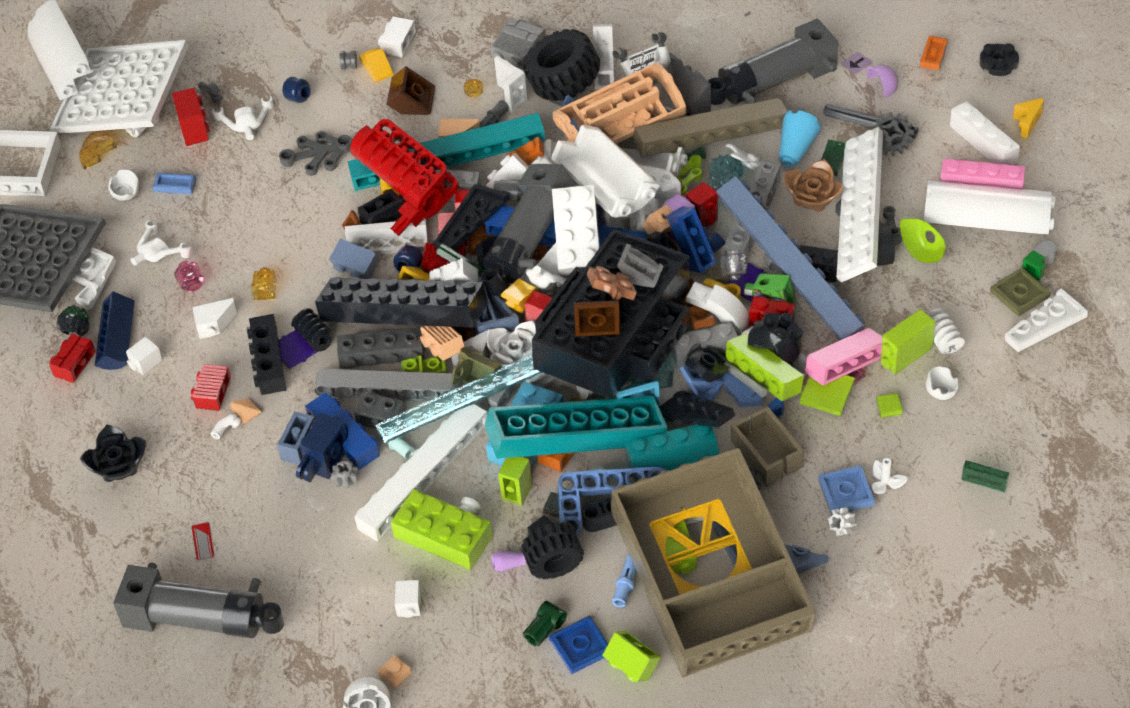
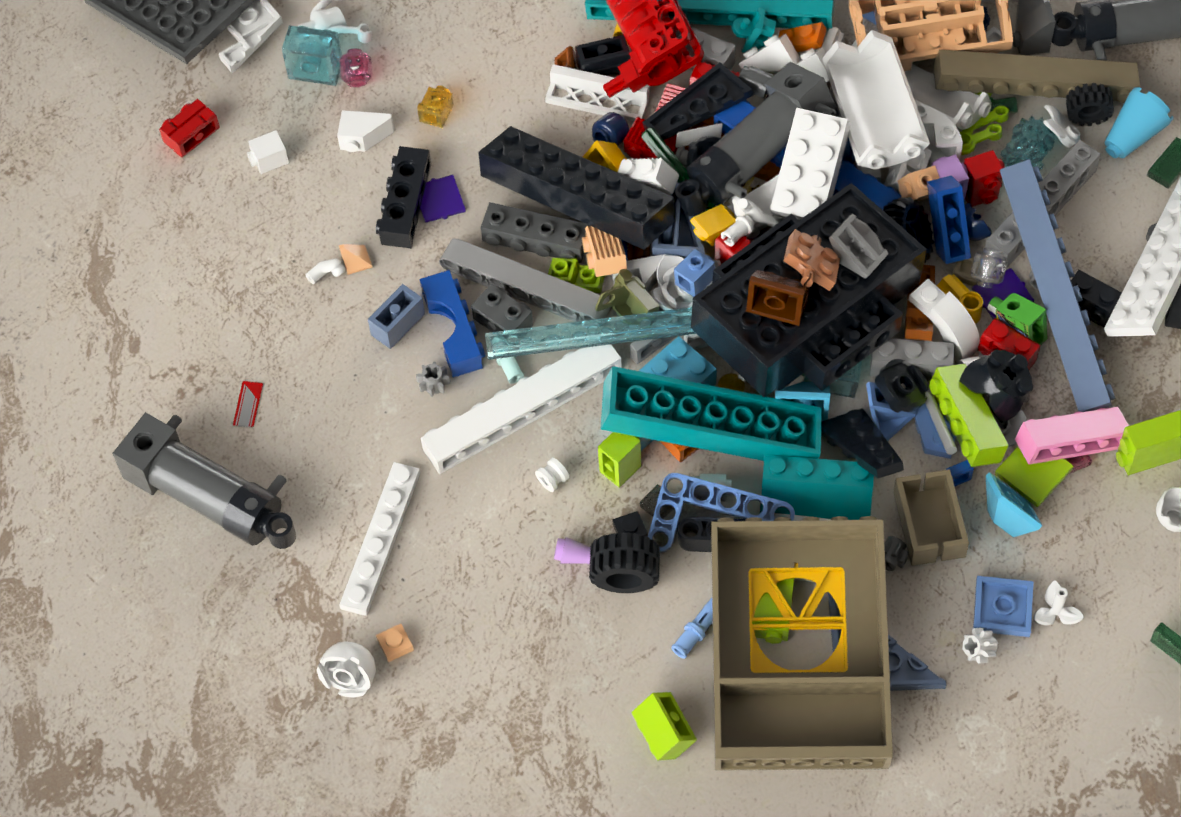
camera: 20 degrees right, 10 degrees up
(73, 320) = (207, 82): black piece -> none
(114, 332) = (248, 110): dark blue brick -> none
(114, 454) = (189, 251): black brick -> none
(152, 276) = (312, 55): none -> clear light blue brick
(210, 387) = (327, 216): brick -> none
(312, 329) = (466, 184): black piece -> none
(322, 448) = (416, 340): dark blue brick -> none
(350, 602) = (380, 539): none -> white plate
(354, 259) = (548, 110): sand blue brick -> none
(407, 598) = (441, 560): white brick -> none
(442, 529) = (514, 488): lime brick -> none
(470, 244) = (686, 137): none -> white sticker
(486, 158) = (754, 31): none -> teal hips
(518, 333) = (694, 272): none -> medium blue brick
(541, 288) = (742, 226): none -> white pin
(547, 618) = (590, 642): dark green piece -> none
(579, 644) = (614, 686): blue tile -> none
(765, 132) = (1089, 104): none -> black tyre
(814, 187) = (1139, 184): medium nougat brick -> none
(821, 422) = (1009, 508): none -> medium azure slope
(889, 405) = (1102, 514): lime tile -> none

